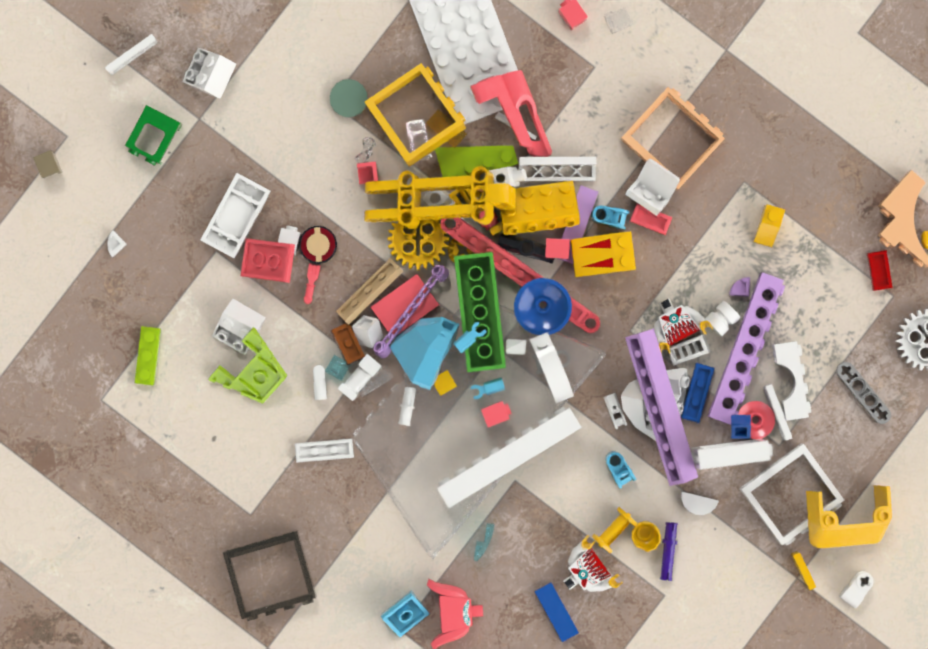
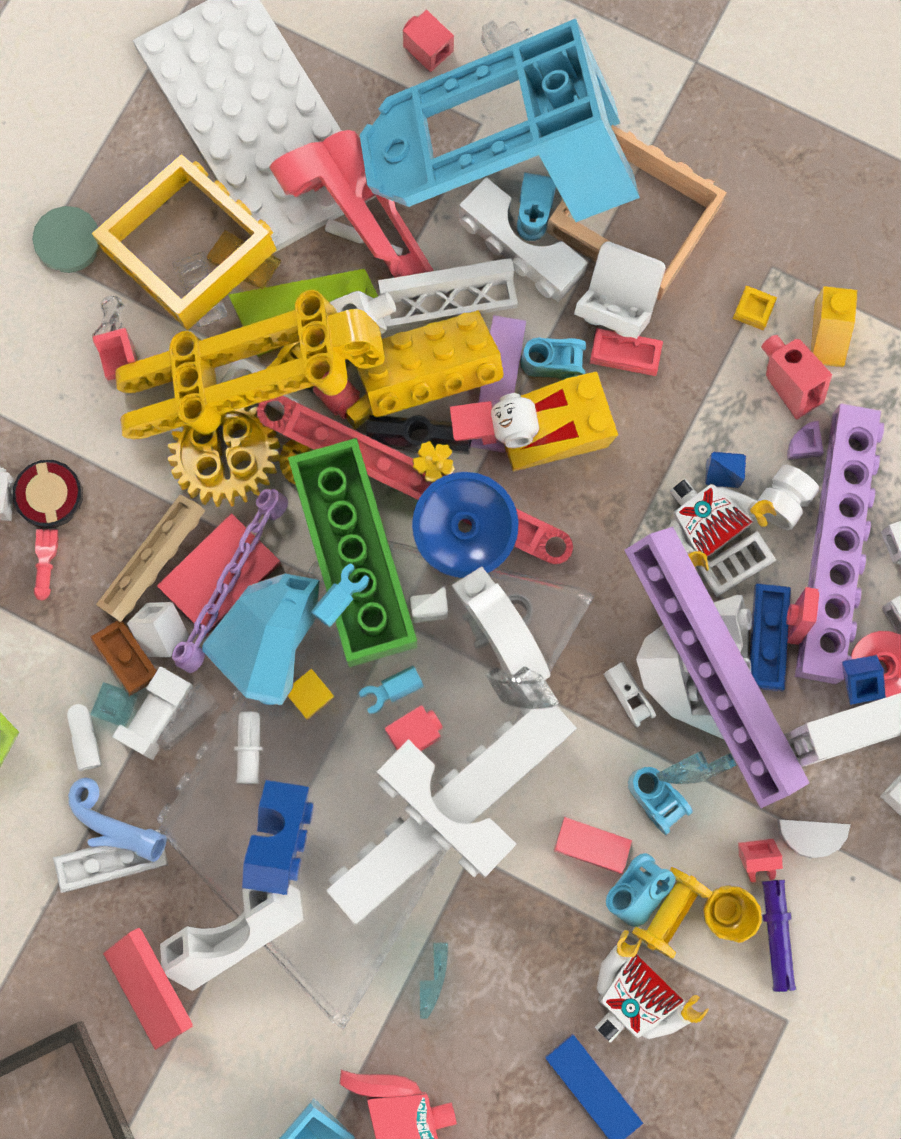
camera: 10 degrees left, 10 degrees down
(328, 436) = (115, 833): none -> light blue plant
(335, 520) = (147, 988): none -> coral tile
(365, 508) = (201, 954): none -> white arch
(412, 468) = (272, 859): none -> blue arch
(520, 479) = (479, 843): none -> white arch
(532, 267) = (433, 461): none -> yellow plant
(556, 402) = (523, 689): none -> clear slope
(580, 252) = (514, 420): none -> white head
(580, 487) = (592, 845): none -> coral slope
(588, 125) = (551, 267): none -> white arch
(598, 516) = (639, 890): none -> medium azure piece
(617, 121) = (535, 203): none -> medium azure piece
(637, 104) = (566, 126): none -> medium azure bracket
(640, 458) = (696, 769): none -> clear light blue slope
(667, 508) = (760, 856): none -> coral tile
(692, 296) = (725, 469): none -> blue slope
(714, 386) = (802, 615): none -> coral plate
(728, 205) = (754, 307): none -> yellow tile
(743, 257) = (796, 375): none -> coral torso

